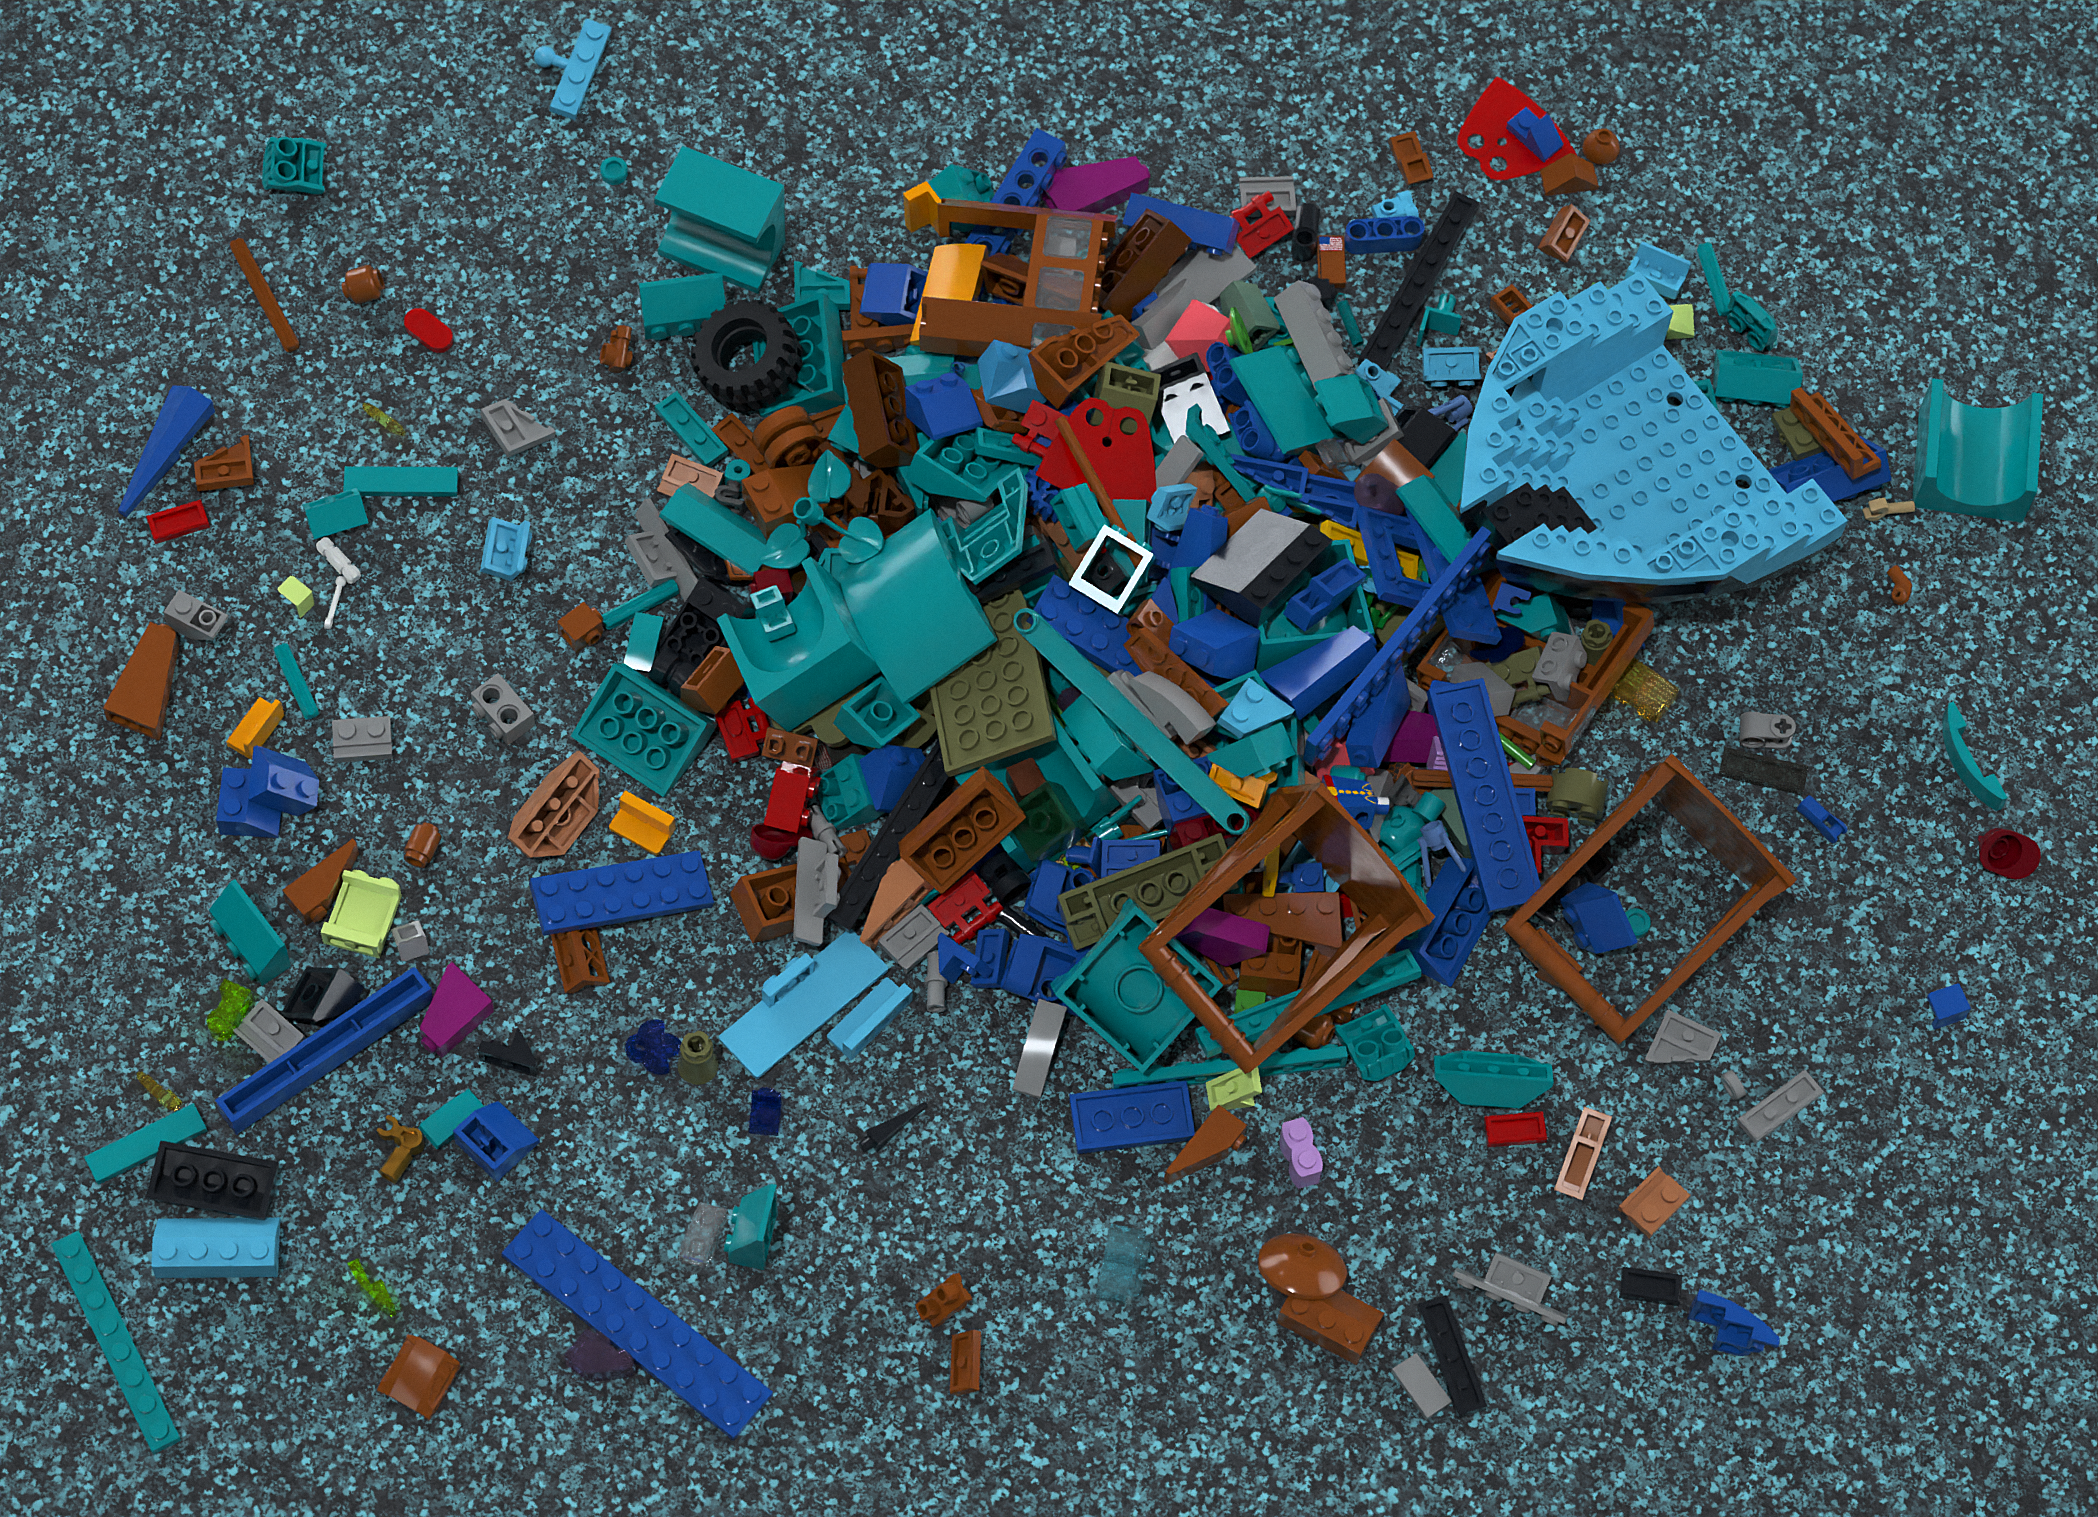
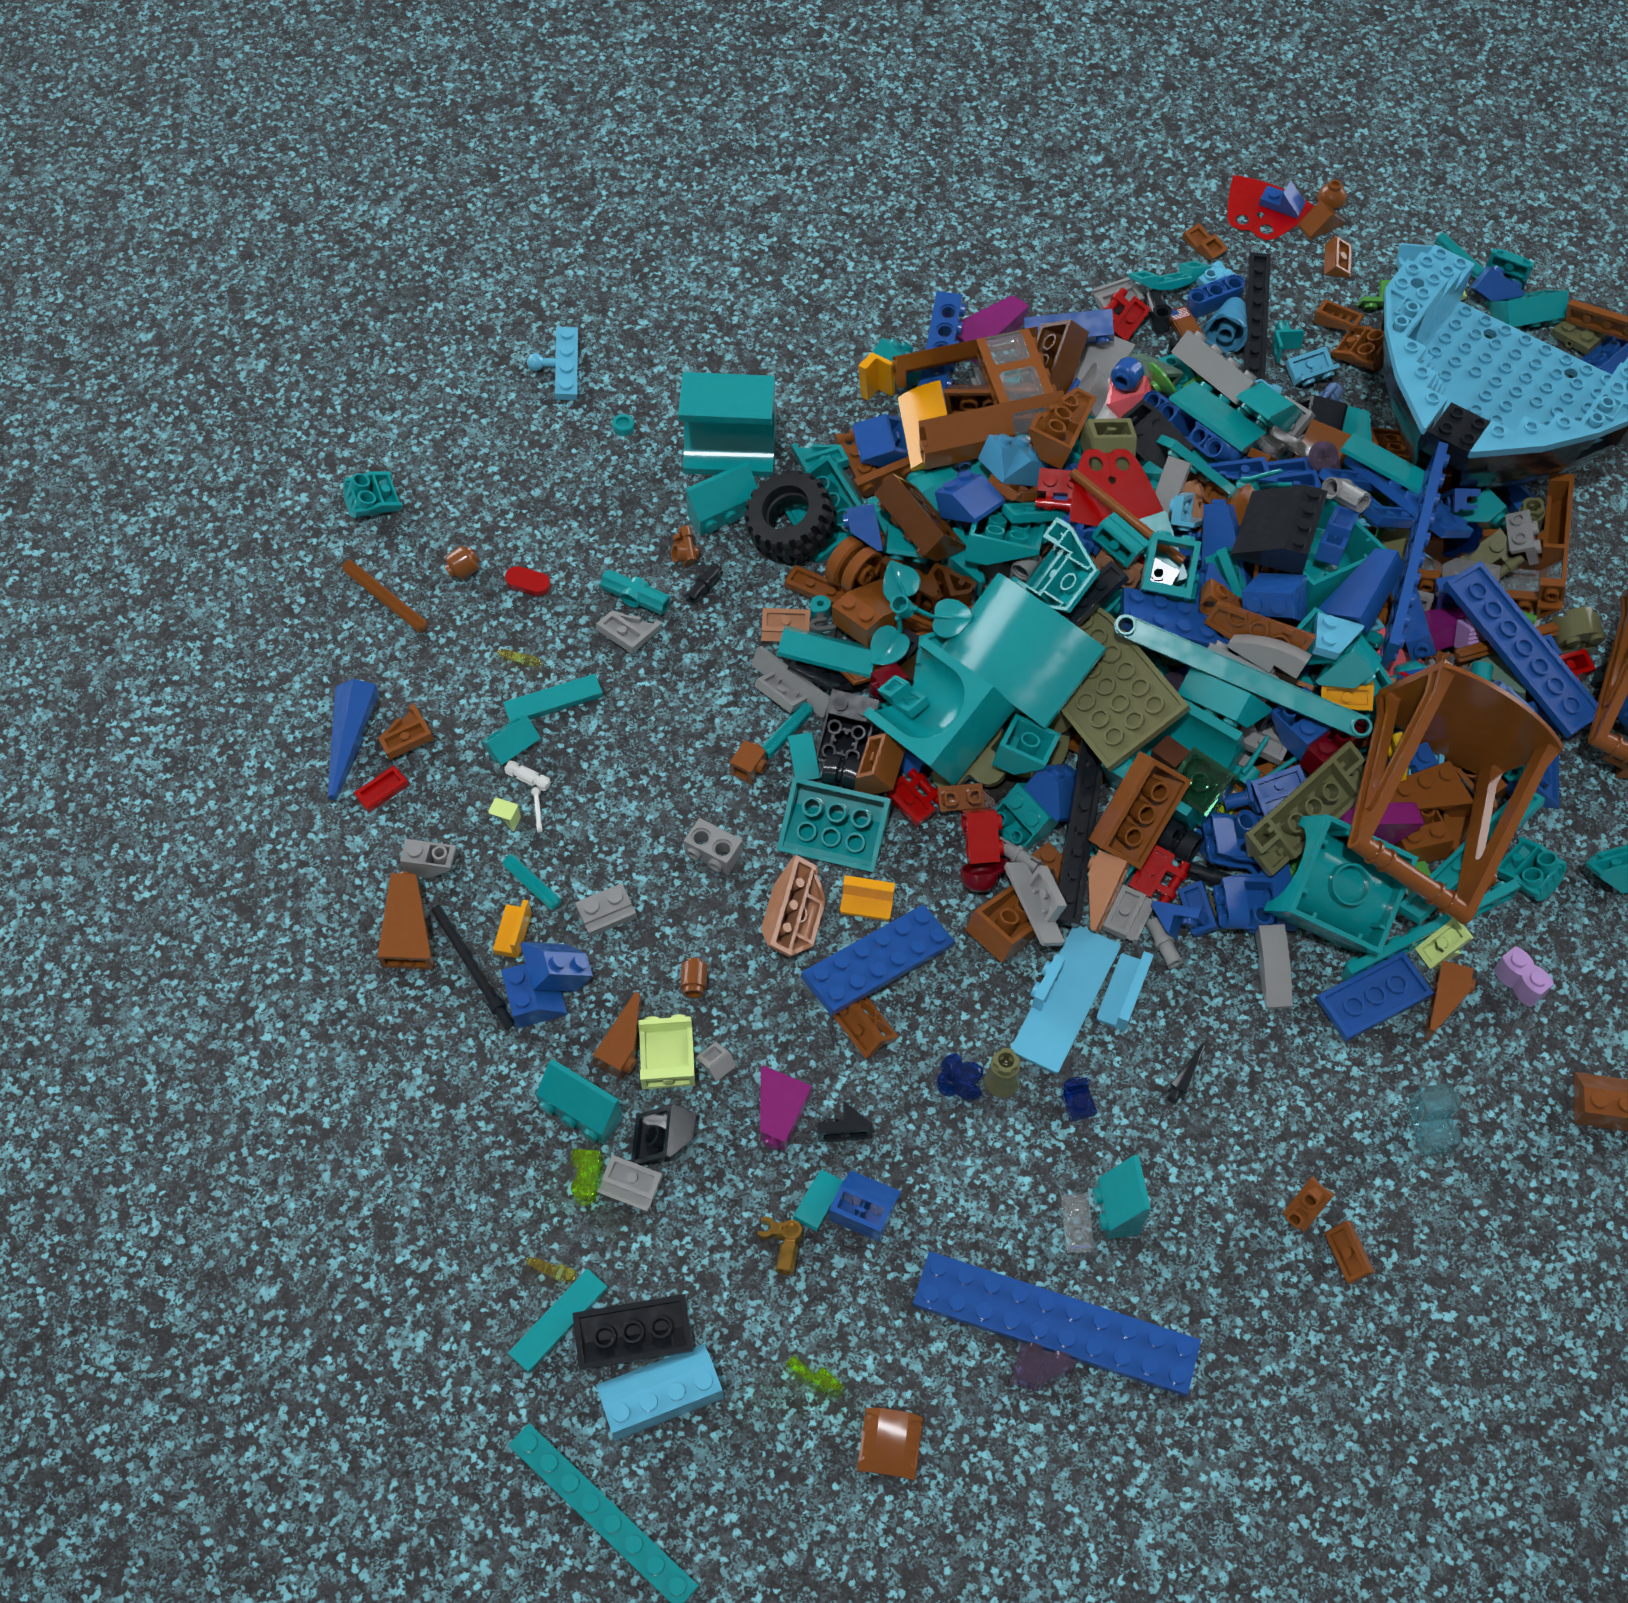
camera: 15 degrees left, 5 degrees down
(207, 800) = (495, 1003): none -> black bar
(324, 1050) = (684, 1181): blue brick -> none
(505, 548) = (661, 721): medium azure bracket -> none
(540, 384) = (635, 592): none -> teal piece
(621, 400) = (703, 584): none -> black pin
(691, 430) = (768, 587): teal plate -> none
(817, 399) = (864, 525): none -> blue slope
(1201, 312) = (1127, 374): none -> blue head
(1302, 1266) = (1578, 1068): dark orange dish -> none
(1340, 198) = (1187, 274): none -> teal slope
(1351, 455) = (1289, 441): none -> clear smoke tile
(1362, 546) = (1347, 493): none -> light grey piece
(1376, 280) = (1228, 326): none -> dark azure cone
(1645, 691) = (1585, 544): clear yellow brick -> none
(1728, 337) = (1494, 286): none -> blue slope

